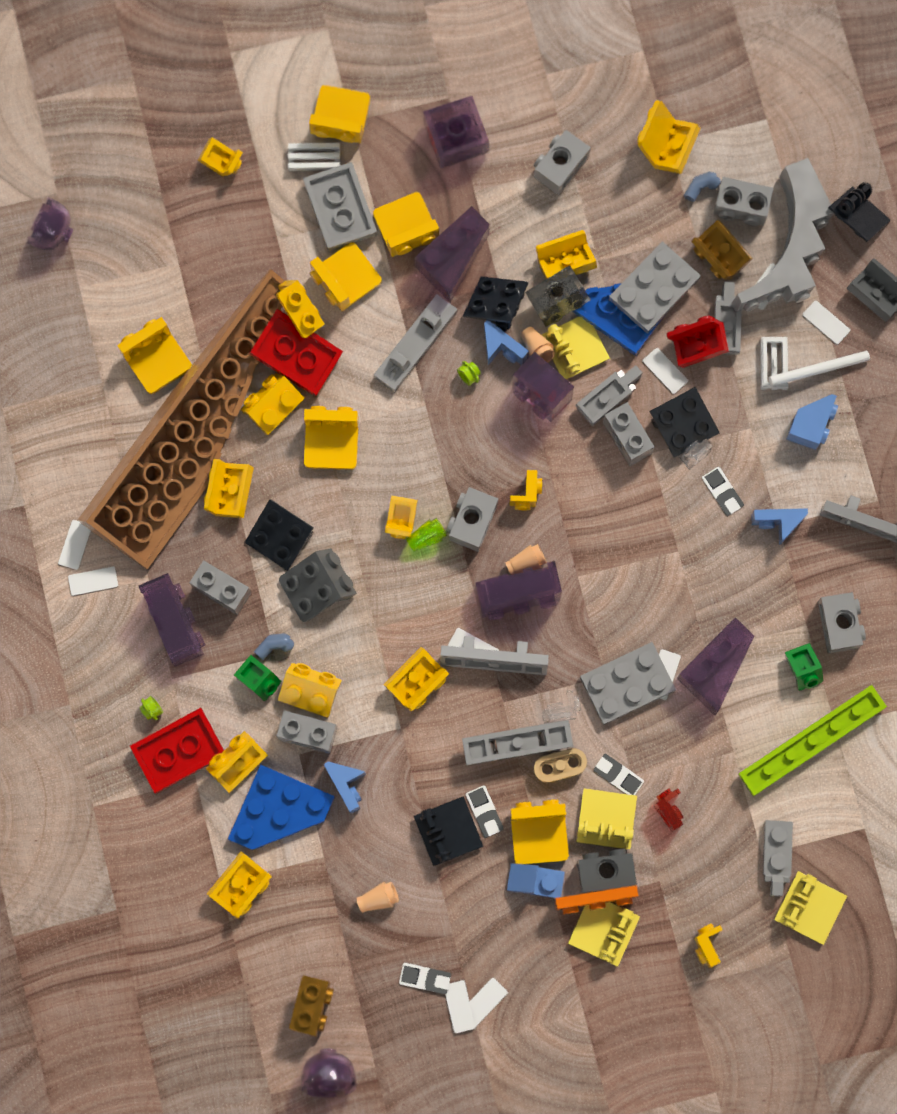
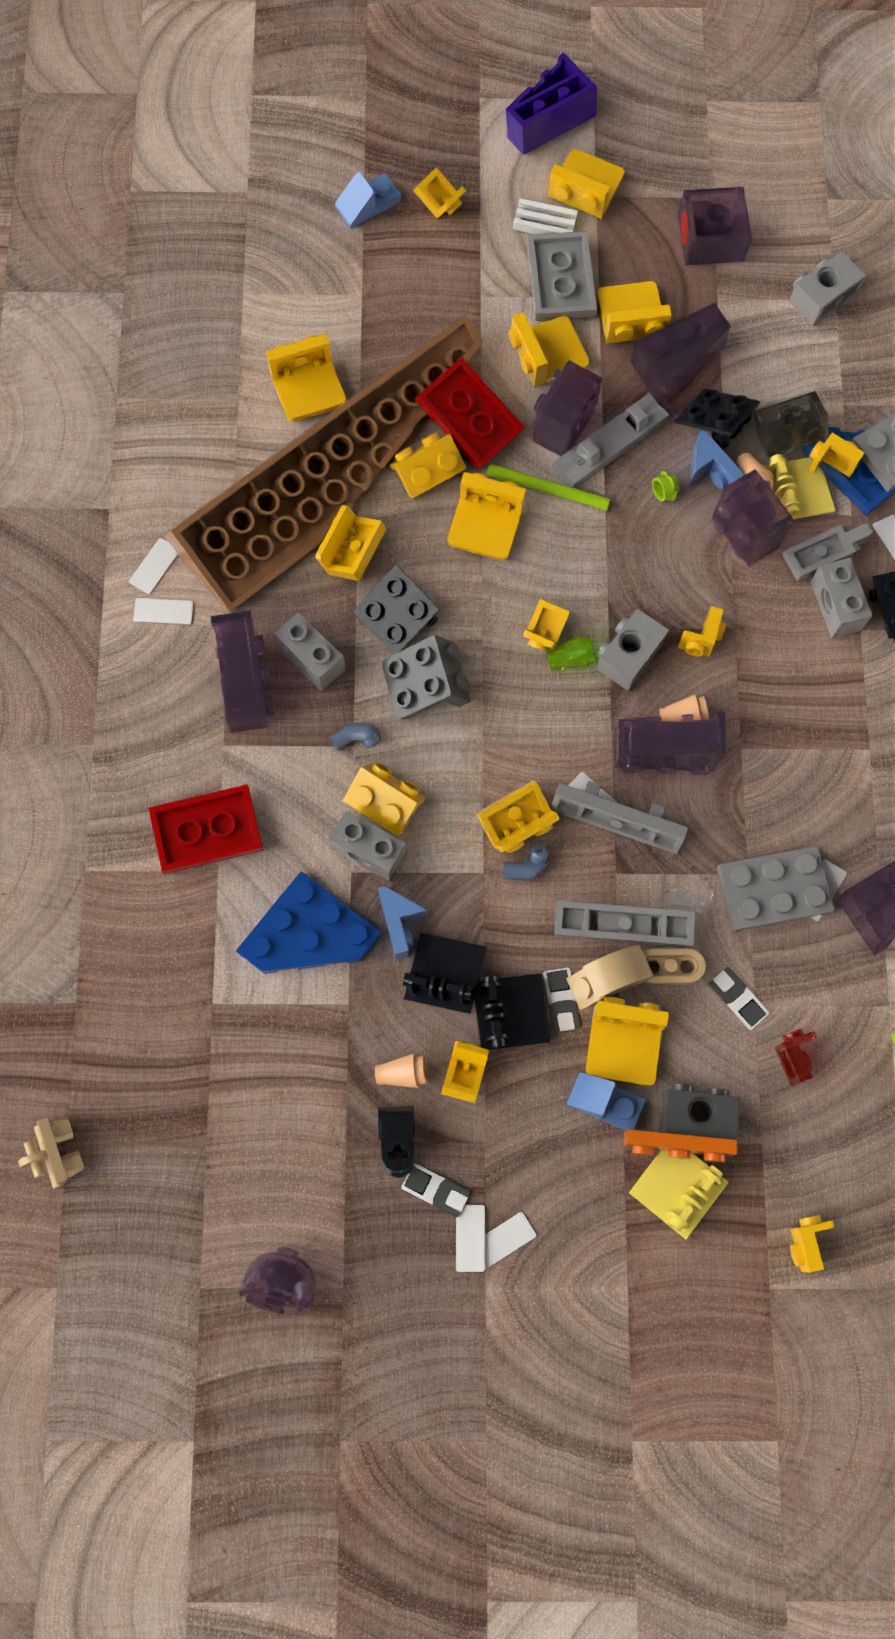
camera: 10 degrees right, 5 degrees down
(50, 226) = (228, 216): clear purple cylinder -> none
(128, 1016) = (48, 1138): none -> tan hips
(150, 708) = (187, 771): lime plate -> none
(160, 176) = (366, 199): none -> medium blue slope
(236, 761) = (272, 859): yellow bracket -> none
(239, 885) = (234, 1011): yellow bracket -> none
(258, 678) = (326, 768): green bracket -> none
(295, 53) = (551, 107): none -> dark purple wedge
(299, 307) = (488, 361): yellow bracket -> none
(309, 1006) = (280, 1186): pearl gold bracket -> none
(372, 331) = (565, 408): none -> clear purple brick
(374, 396) = (548, 487): none -> lime bar
(386, 945) = (397, 1134): none -> black piece
(391, 815) = (444, 973): none -> black hinge
(425, 885) = (465, 1071): none -> yellow bracket
(435, 716) = (530, 867): none -> sand blue arm
(516, 785) = (609, 976): none -> tan brick
(566, 251) = (804, 378): yellow bracket -> none
(604, 314) = (837, 453): none -> yellow bracket
(606, 819) = (713, 1048): light yellow hinge -> none

